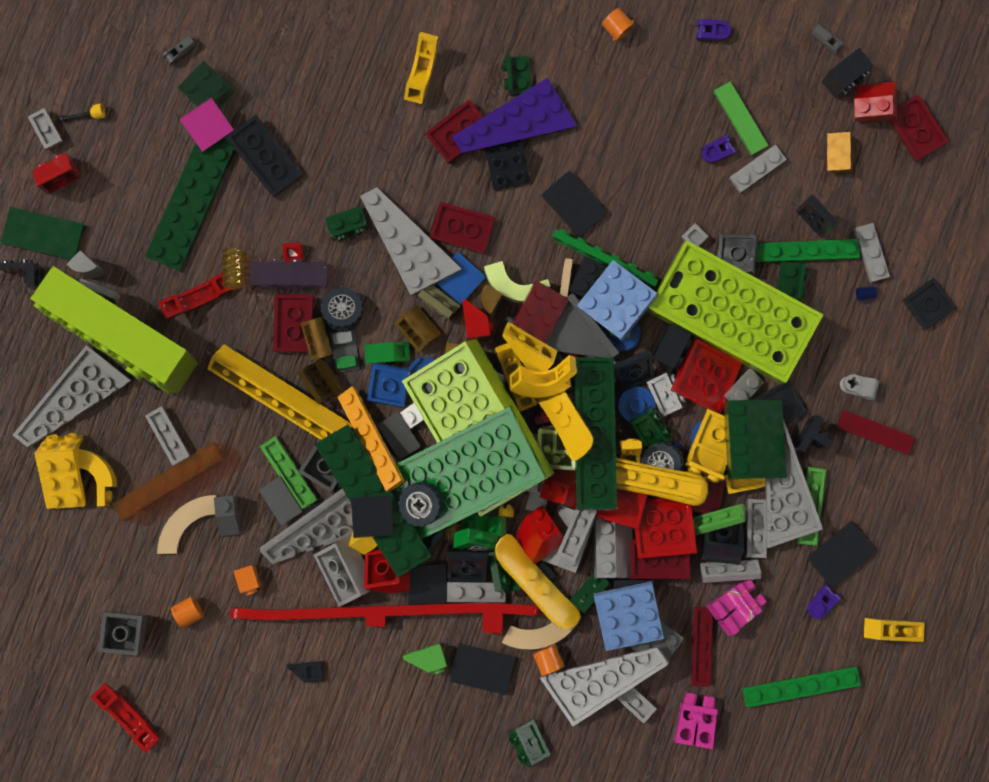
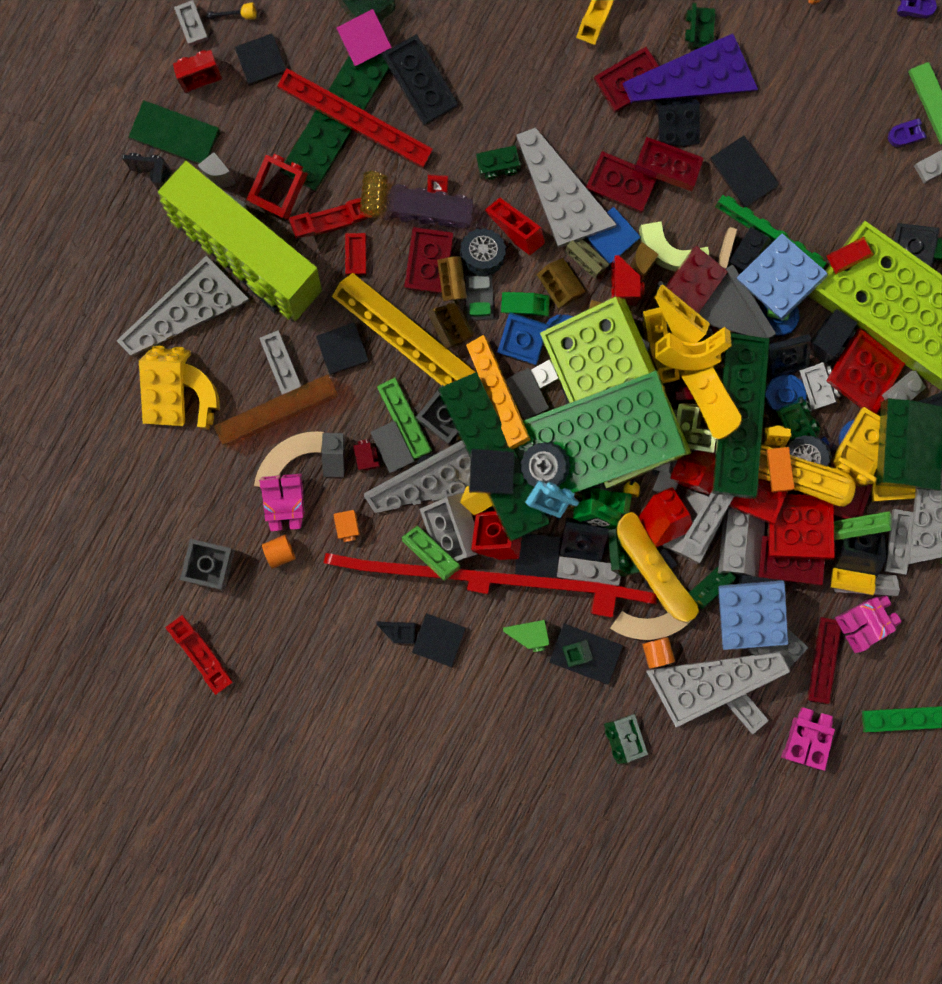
camera: 15 degrees right, 0 degrees up
(114, 154) = (260, 59): none -> black tile
(133, 289) = (293, 192): none -> red window
(185, 564) = (285, 506): none -> dark pink hips
(207, 200) = (354, 118): none -> red plate
(223, 415) = (342, 348): none -> black tile
(225, 325) = (355, 253): none -> red tile
(257, 512) = (366, 456): none -> dark red brick
(327, 595) = (430, 553): none -> bright green tile
(345, 674) = (438, 640): none -> black tile
(370, 281) = (518, 227): none -> red slope
(429, 534) = (551, 498): none -> medium azure bracket
(474, 670) = (577, 653): none -> dark green slope
(503, 206) = (669, 164): none -> dark red plate
(636, 479) = (780, 469): none -> orange tile
(676, 274) = (850, 255): none -> red tile
(695, 235) = (872, 218): light grey plate -> none
(718, 571) = (853, 581): none -> yellow tile

